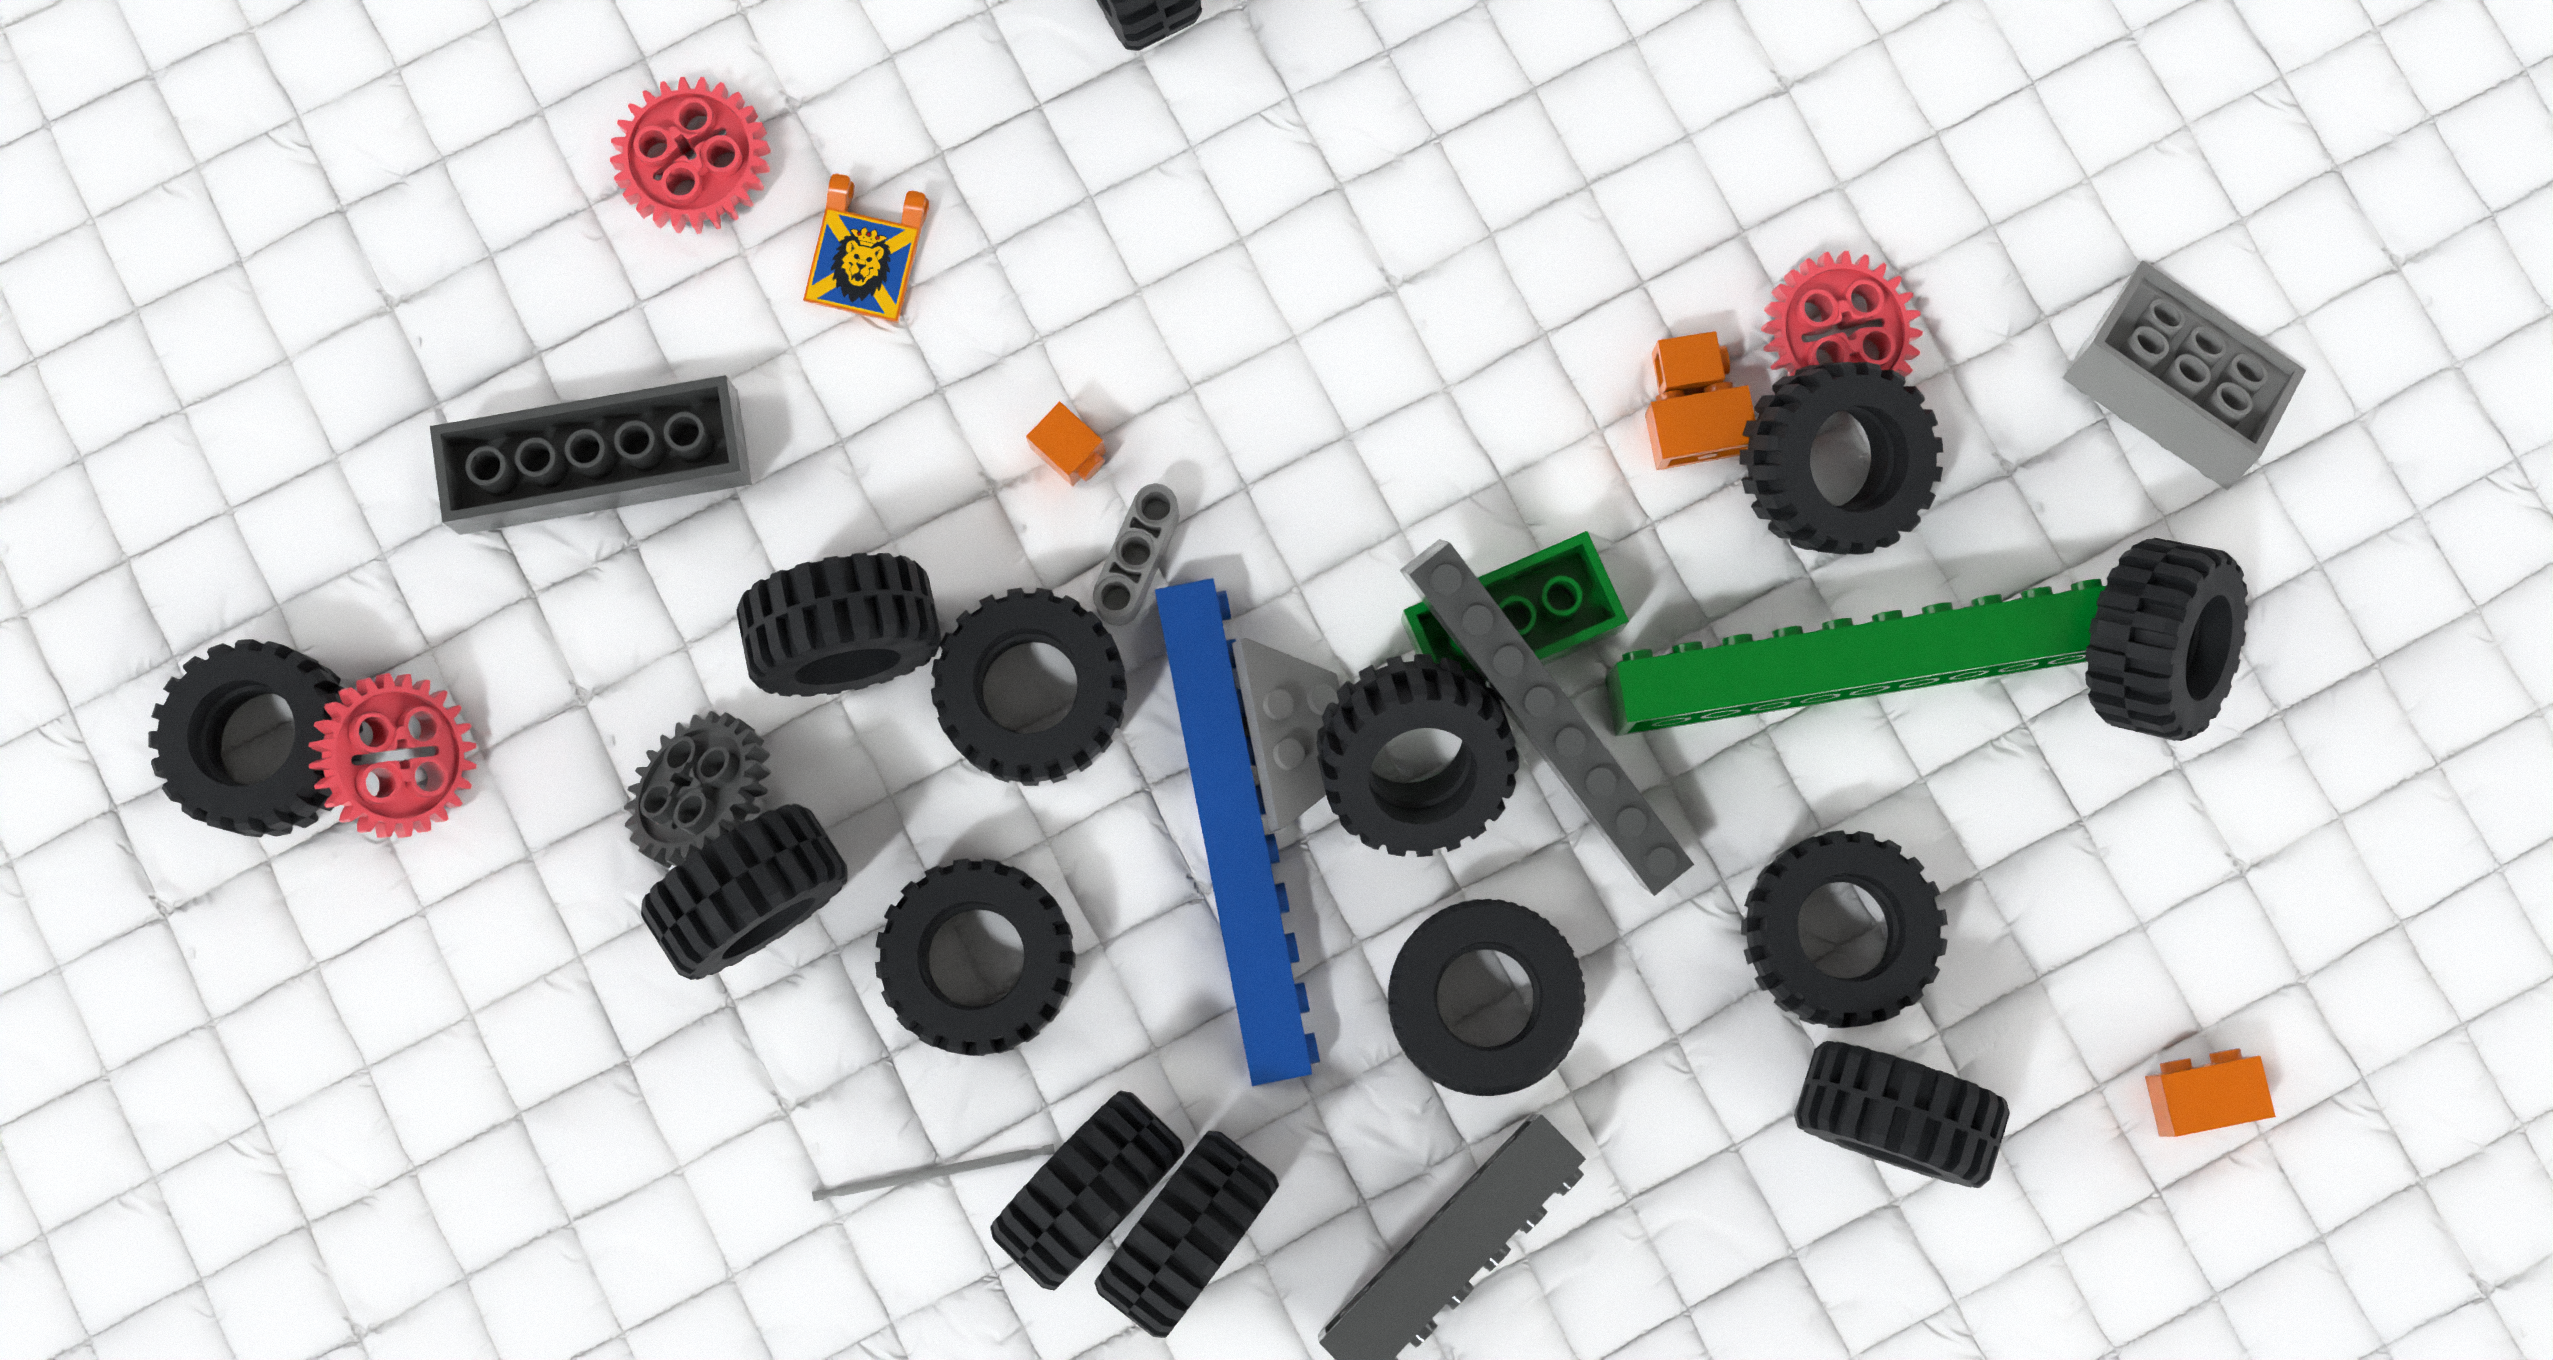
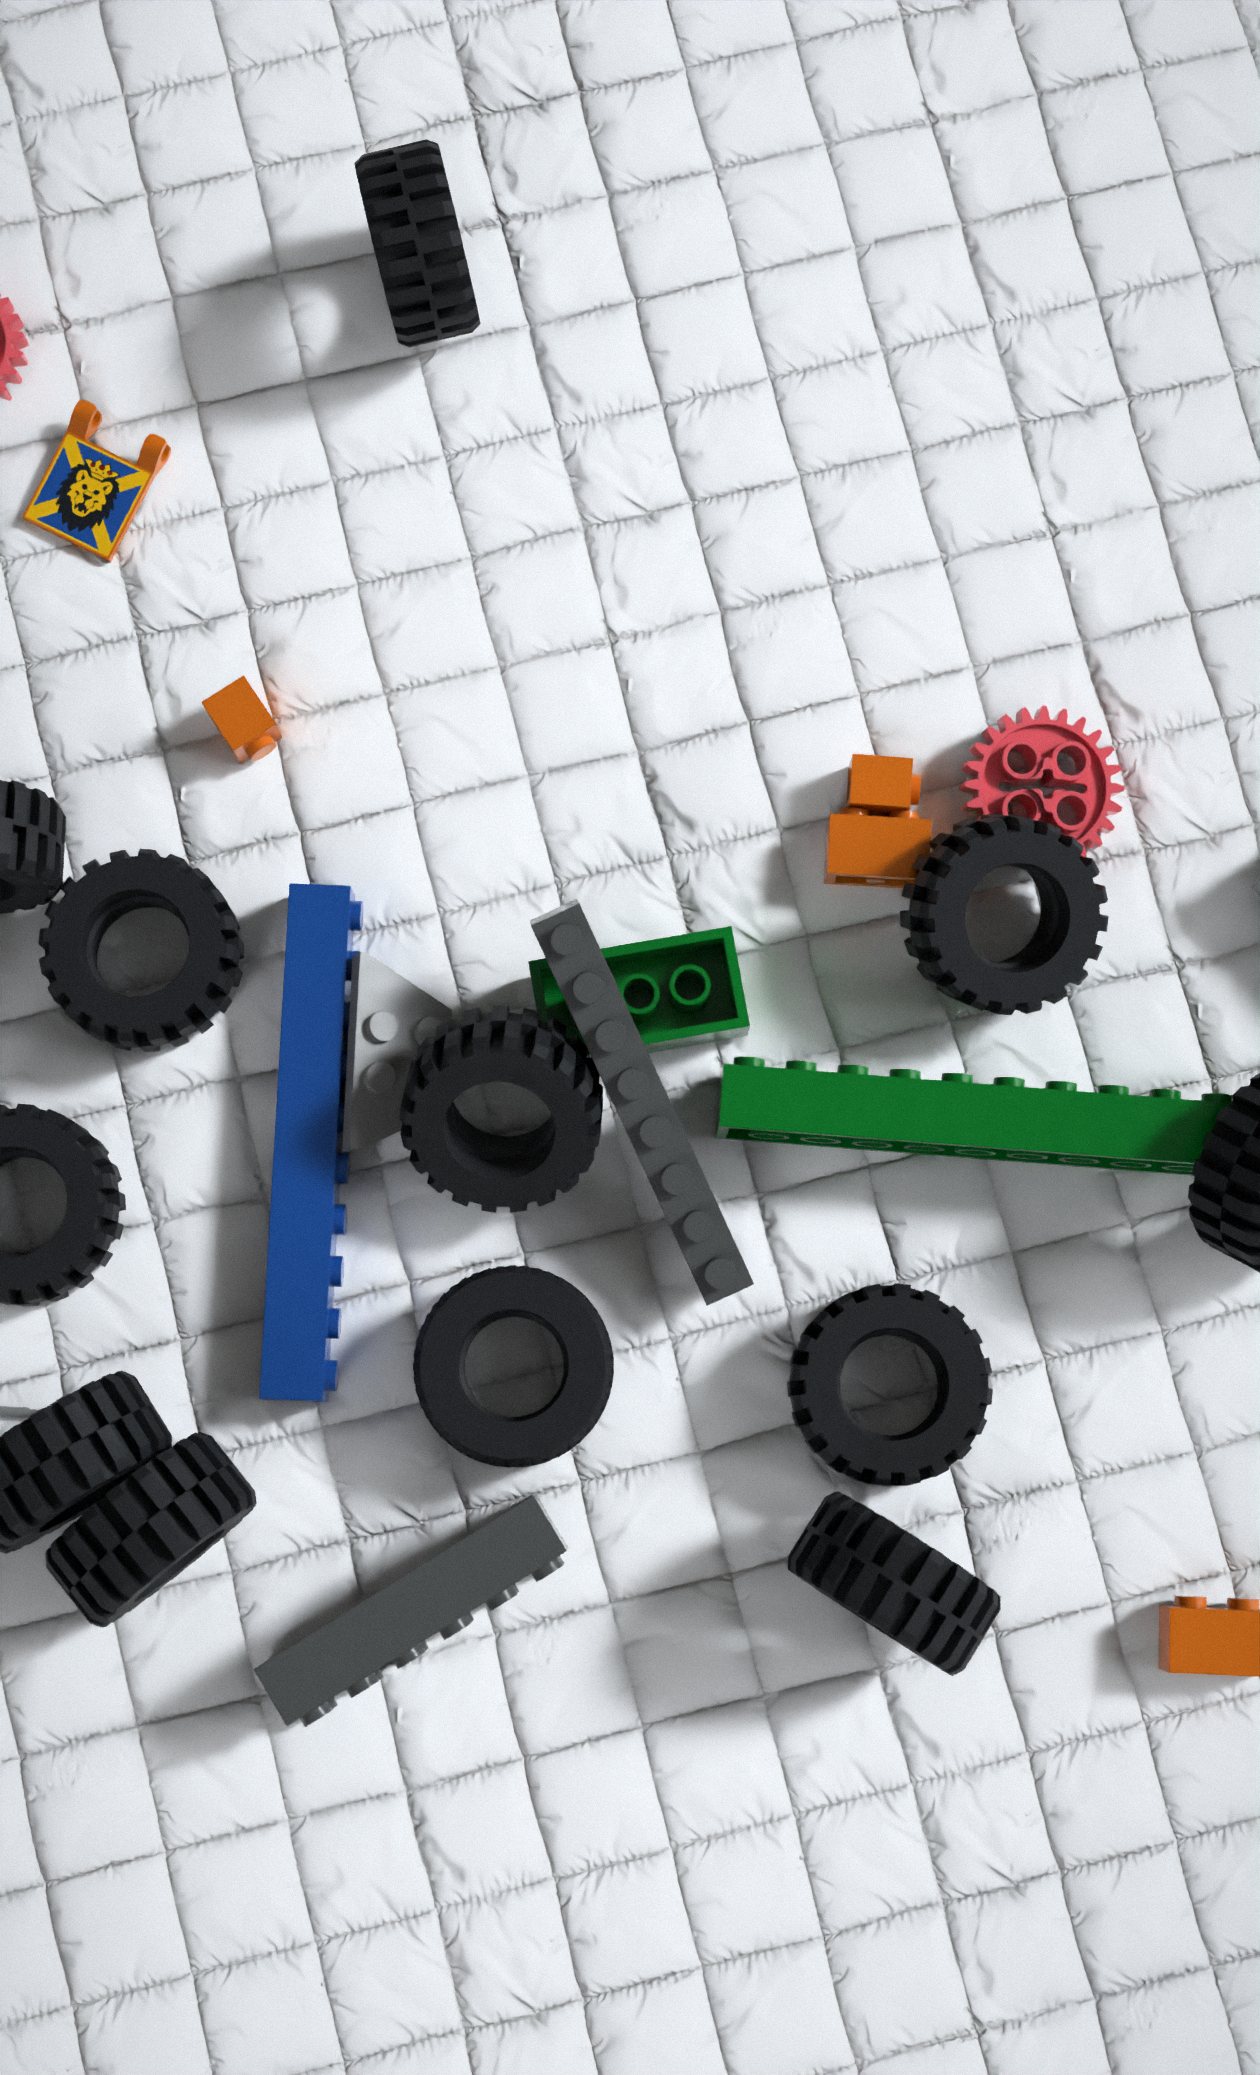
camera: 10 degrees right, 0 degrees up
(1142, 531) = (284, 821): light grey beam -> none

